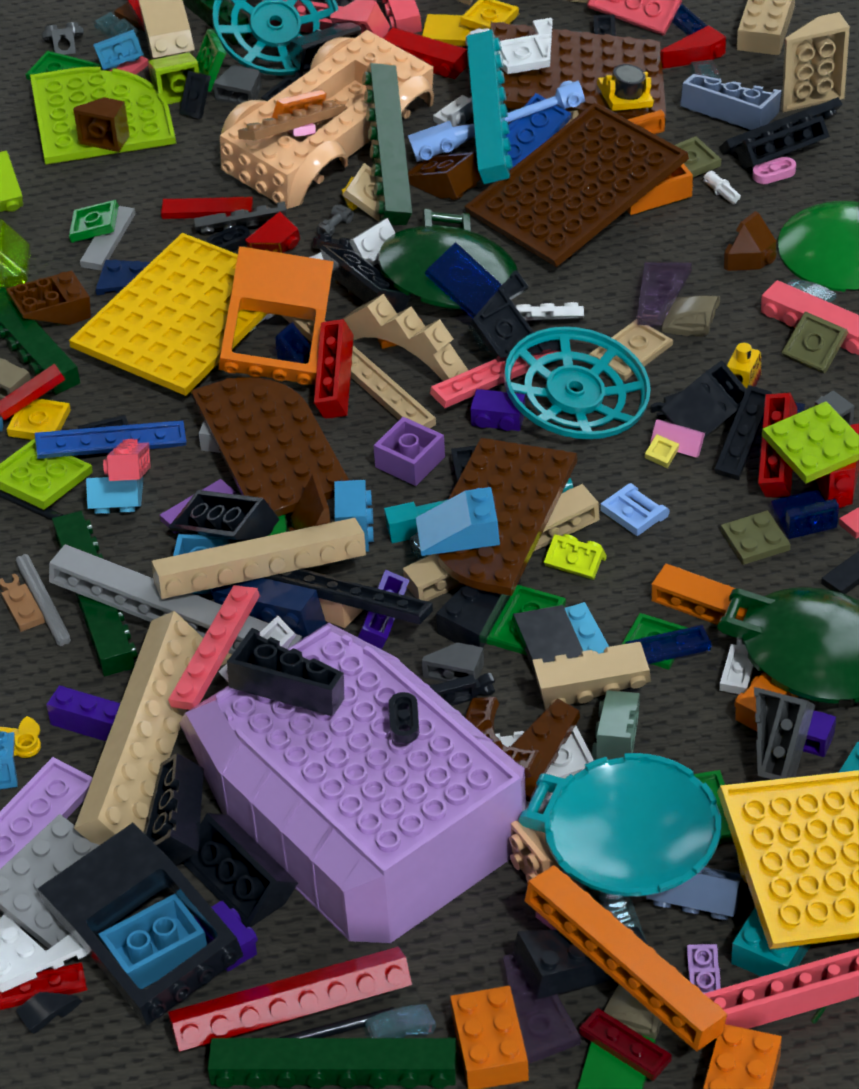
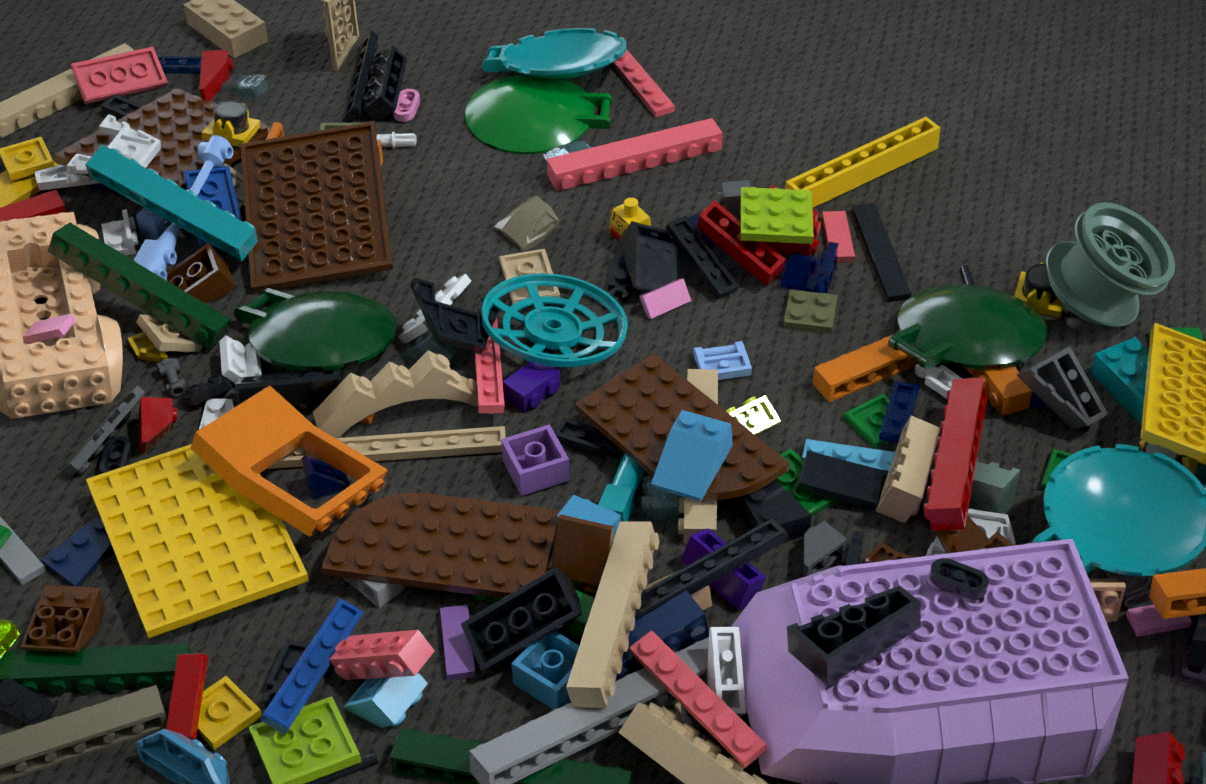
camera: 60 degrees left, 0 degrees up
(202, 207) = (48, 454): red tile -> none
(287, 122) = (48, 326): medium nougat plate -> none
(302, 101) = (27, 313): orange tile -> none
(334, 369) = (402, 467): red brick -> none
(463, 279) = (372, 322): clear blue tile -> none
(623, 691) = (956, 455): none -> red brick
(660, 289) = (481, 227): clear purple wing -> none
(662, 451) = (671, 313): light yellow plate -> none
(730, 101) = (304, 86): sand blue wedge -> none
(752, 247) = (490, 154): reddish brown slope -> none
(815, 342) = (631, 175): olive tile -> none

